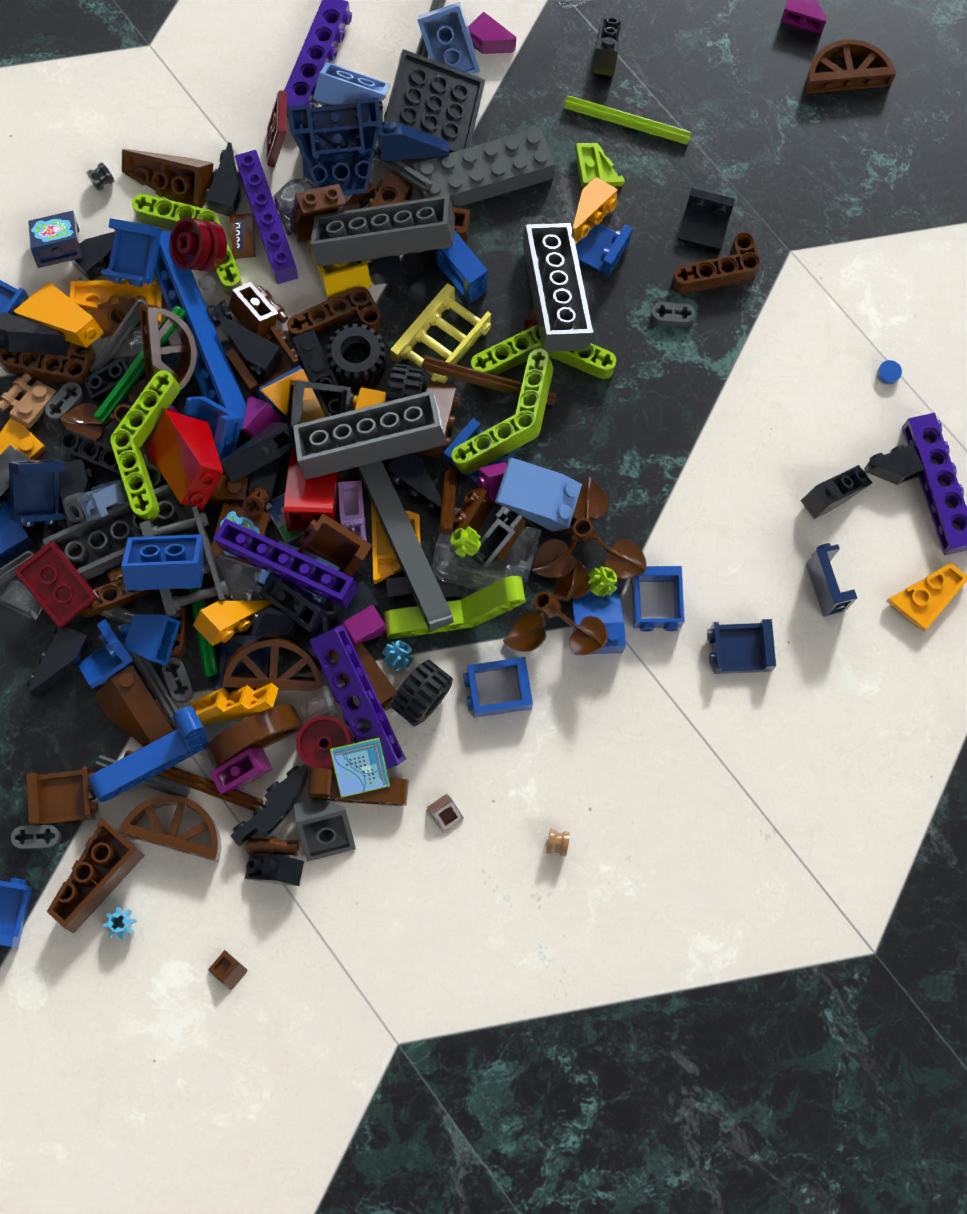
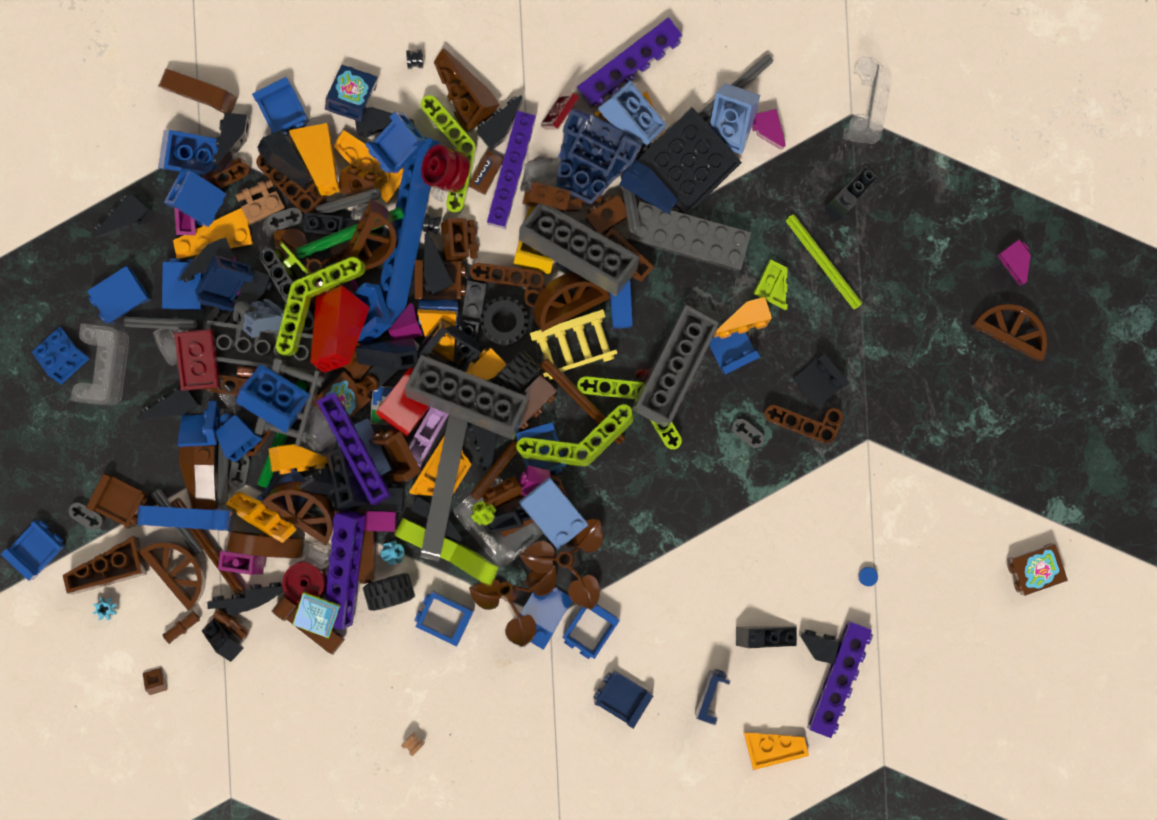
camera: 35 degrees right, 15 degrees up
(94, 423) = (290, 260): none -> lime piece
(219, 887) = (181, 627): none -> reddish brown pin
(323, 828) = (269, 634): dark grey slope -> none
(396, 326) = (572, 306): none -> reddish brown window
(445, 812) = (355, 674): reddish brown slope -> none
(602, 581) = (559, 595): lime gear -> none

